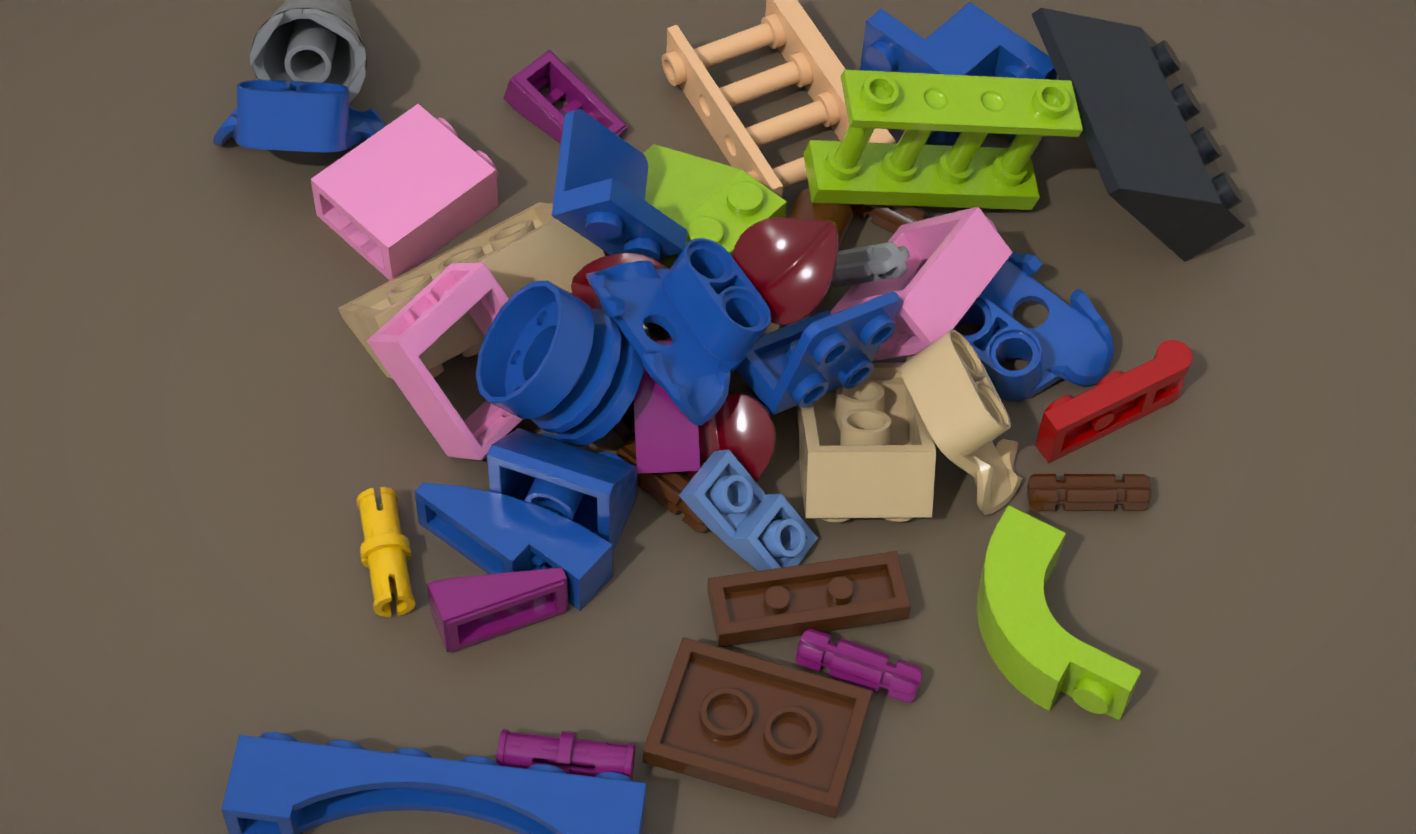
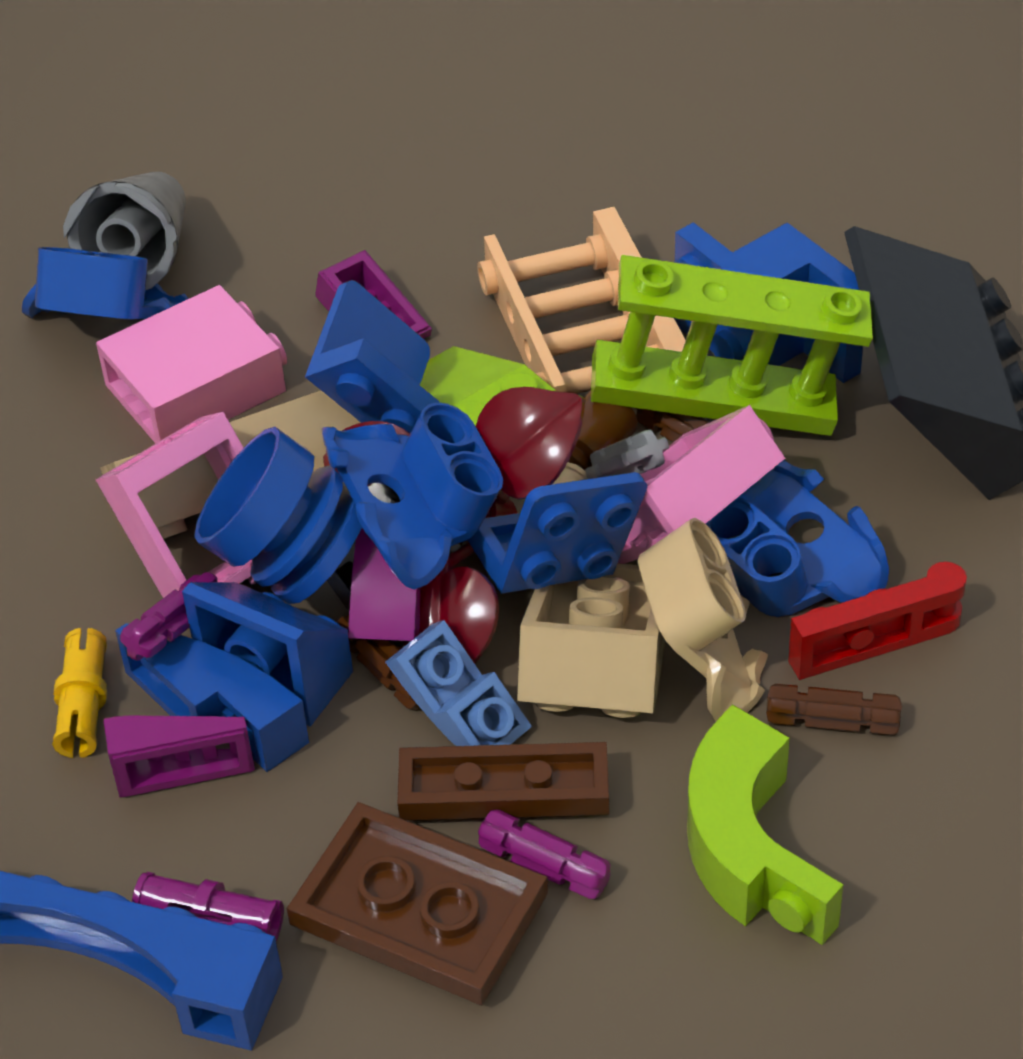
camera: 15 degrees right, 10 degrees down
(467, 476) = (160, 623): none -> magenta axle

